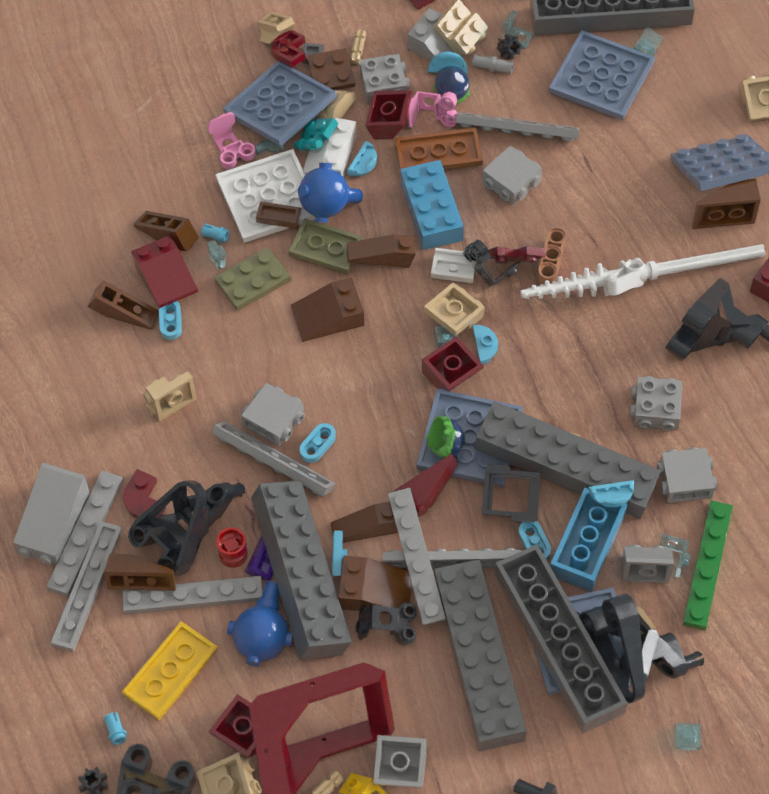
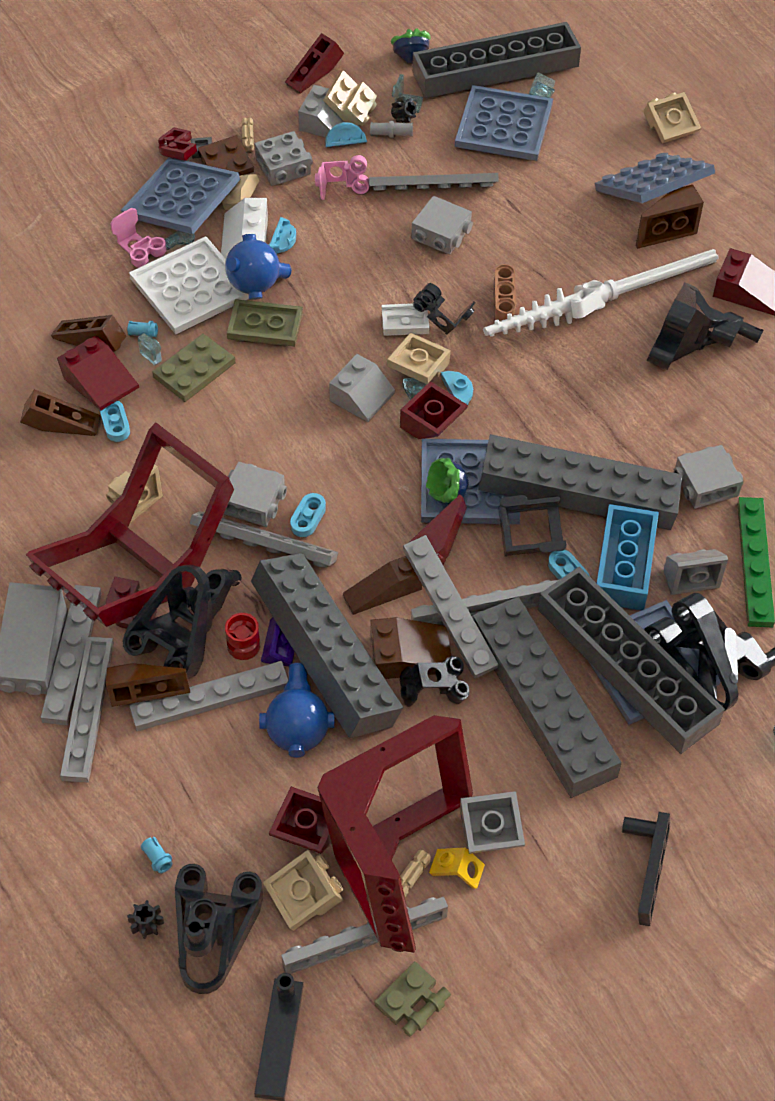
camera: 15 degrees left, 5 degrees down
(145, 424) = (114, 524): none -> dark red window
(169, 670) = (203, 781): yellow tile -> none
(274, 25) = (155, 125): tan slope -> none
(278, 215) = (207, 299): reddish brown tile -> none
(314, 133) = (226, 217): teal plate -> none
(329, 310) = (285, 383): reddish brown slope -> none
(338, 553) = (361, 620): medium azure plate -> none
(383, 250) = (329, 315): reddish brown slope -> none
(387, 113) = (298, 186): dark red slope -> none
(395, 328) = (360, 388): none -> light grey slope
(431, 205) = (366, 265): dark azure brick -> none
(452, 80) = (355, 145): dark blue hair -> none
(452, 148) = (358, 216): dark orange plate -> none
(524, 254) = (479, 293): dark red plate -> none
(612, 494) = (641, 504): medium azure plate -> none
(656, 403) = (655, 413): light grey brick -> none
(682, 547) = (726, 548): clear light blue bracket -> none

